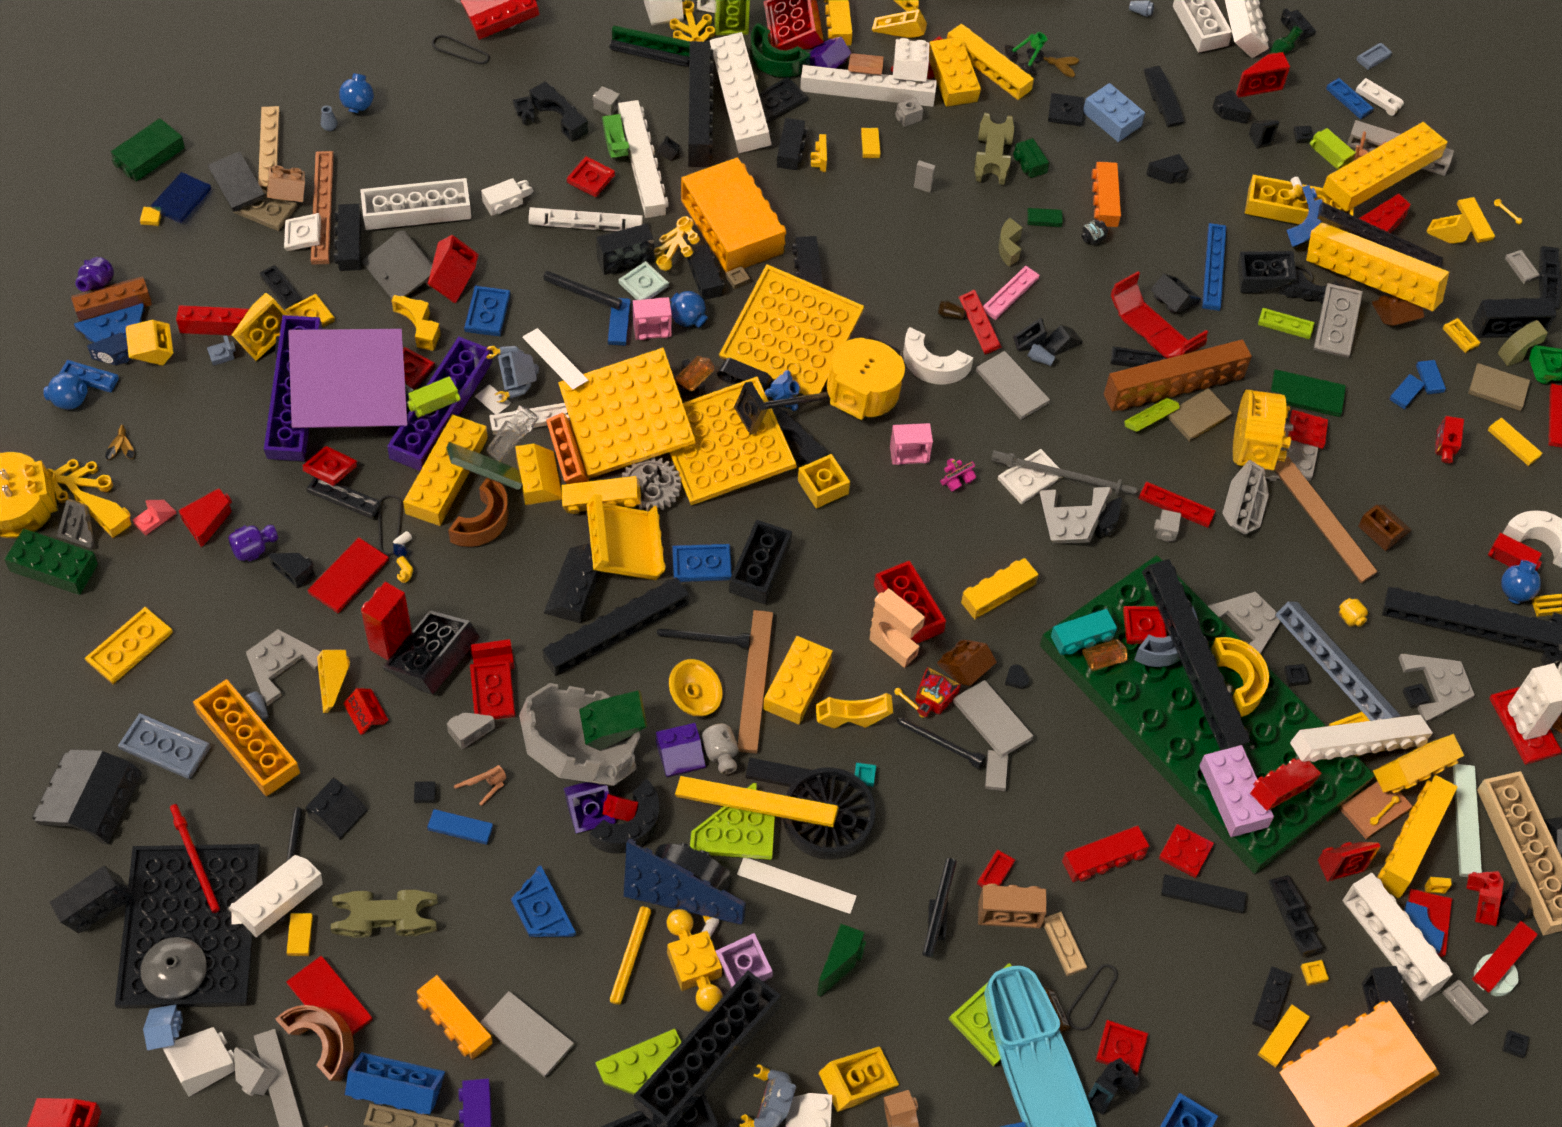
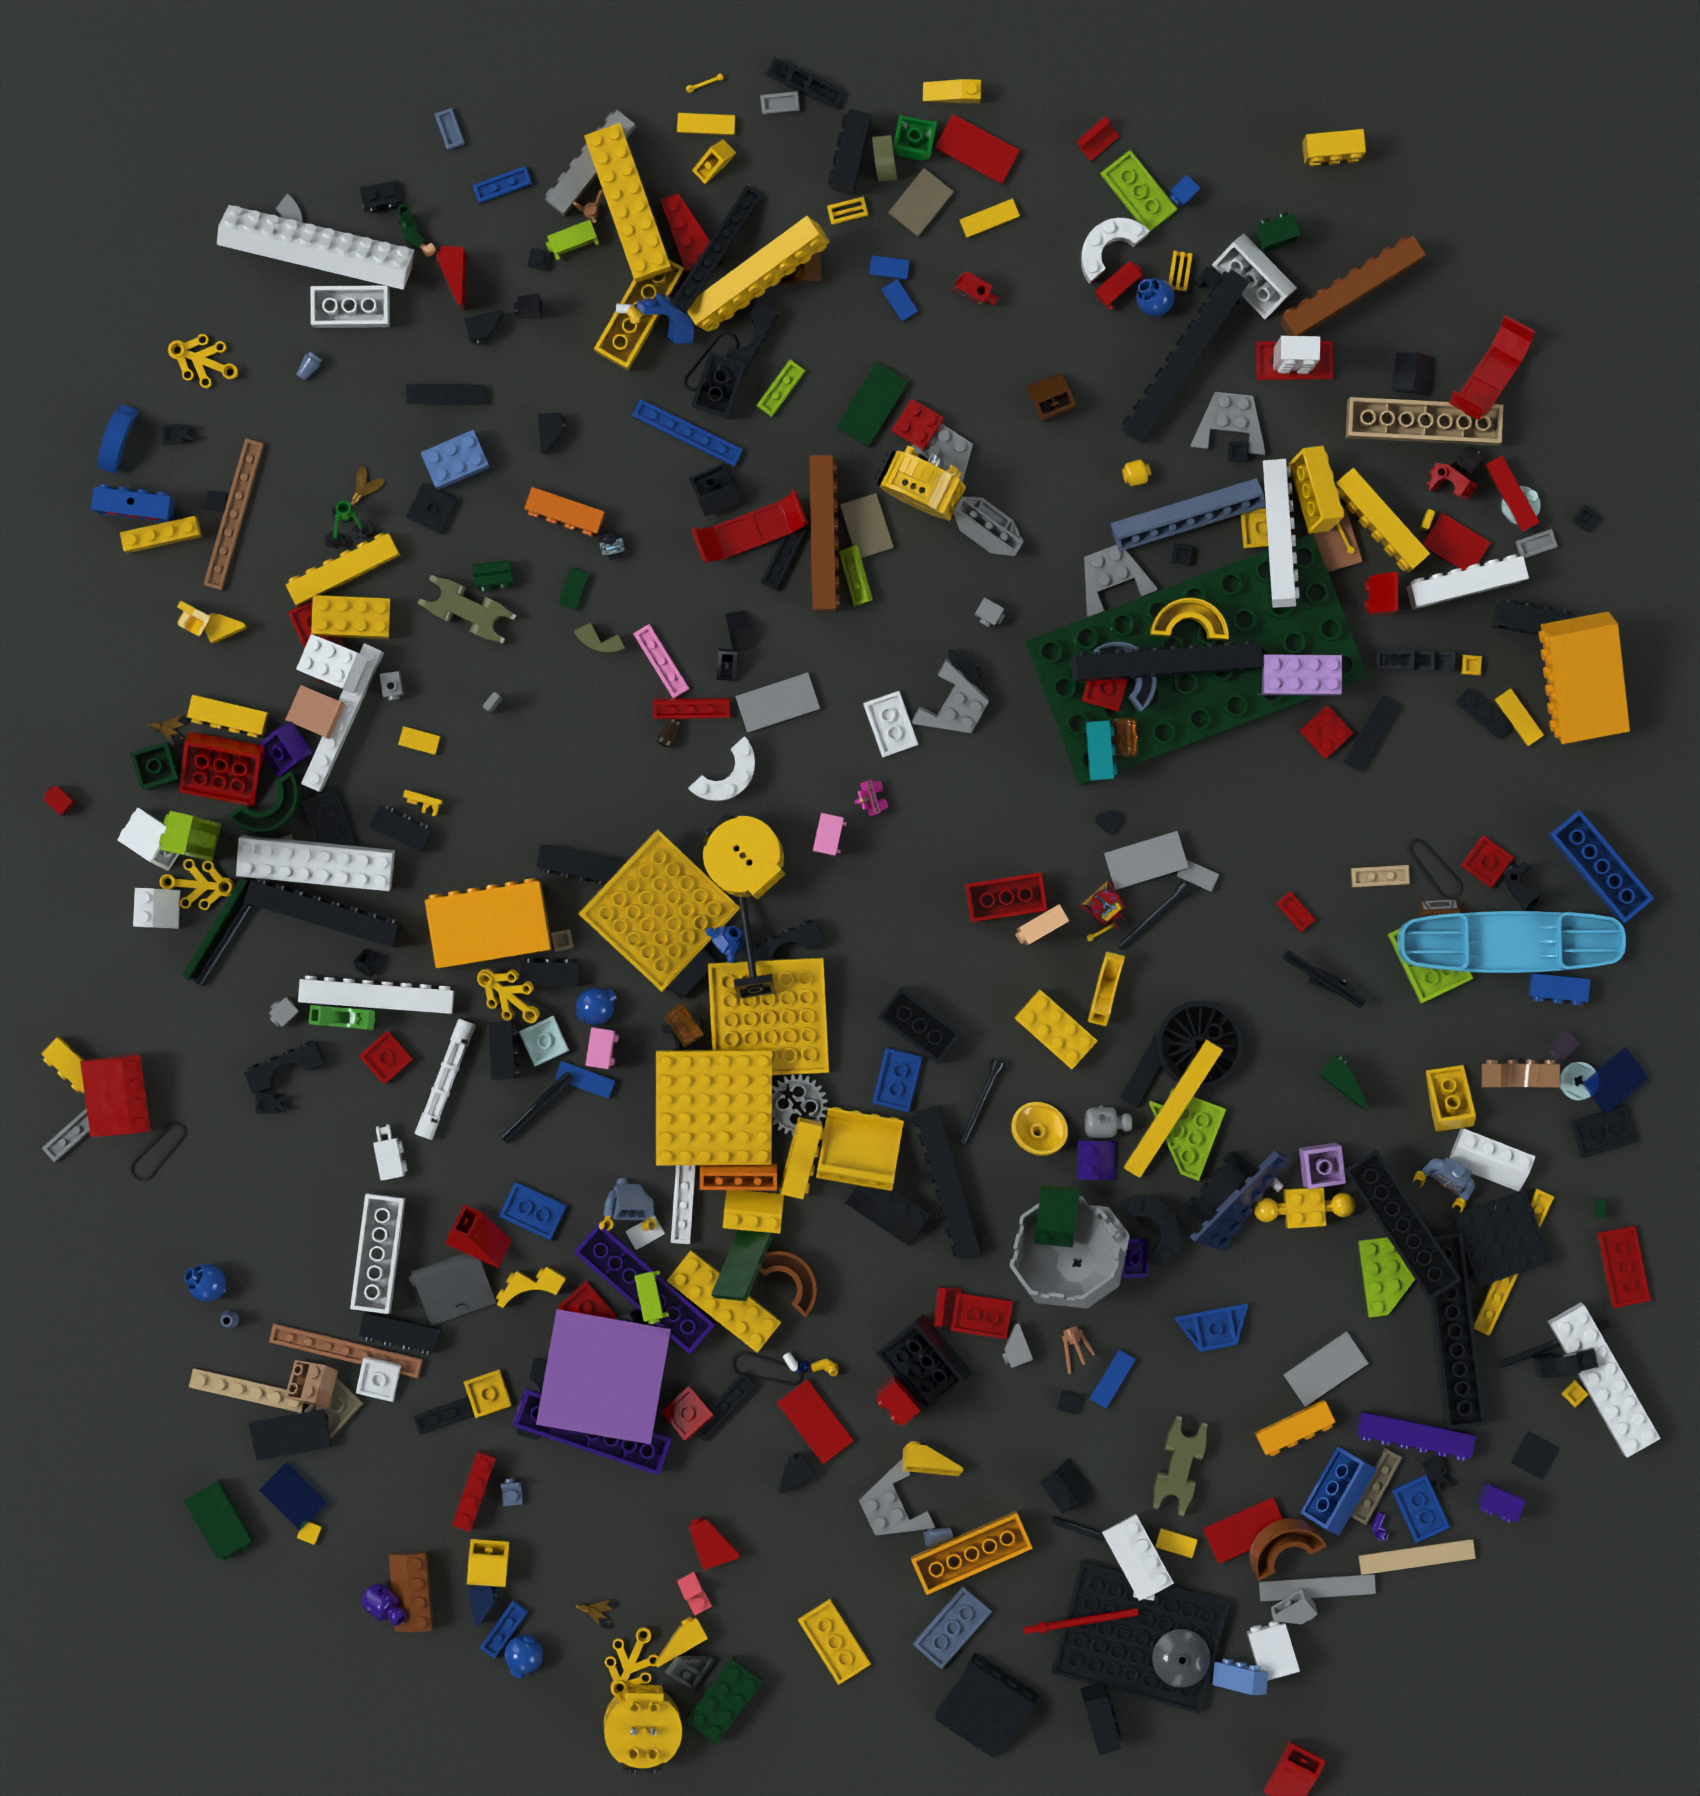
camera: 70 degrees left, 30 degrees up
(111, 323) = (448, 1595): blue wing -> none
(249, 542) = (755, 1508): dark purple piece -> none
(260, 326) = (500, 1445): yellow slope -> none
(365, 709) = (969, 1437): red panel -> none
(511, 432) = (701, 1225): clear slope -> none
(555, 358) = (622, 1160): white sticker -> none
(619, 807) = (1143, 1232): red brick -> none
(630, 955) = (1280, 1260): yellow axle -> none
(755, 682) = (1040, 1068): medium nougat tile -> none
(796, 885) = (1255, 1093): white sticker -> none
(823, 481) = (845, 934): yellow brick -> none
(866, 773) = (1166, 997): teal tile -> none
(902, 24) = (261, 651): yellow slope -> none
(967, 661) = (1080, 863): reddish brown slope -> none
(999, 588) = (1012, 807): yellow brick -> none
(1011, 460) = (871, 739): dark grey bar -> none
(1012, 906) = (1339, 913): medium nougat brick -> none
(1040, 355) = (751, 660): sand blue cone -> none
(1105, 854) = (1310, 807): red brick -> none
(1173, 502) = (964, 591): red tile -> none
(1284, 783) = (1314, 632): red brick -> none
(1325, 520) = (1029, 454): medium nougat tile -> none
(1338, 320) = (799, 336): light grey tile -> none
(1379, 96) = (511, 151): white plate -> none
(1419, 918) = (1470, 551): blue tile -> none
(1467, 820) = (1373, 462): light aqua tile -> none

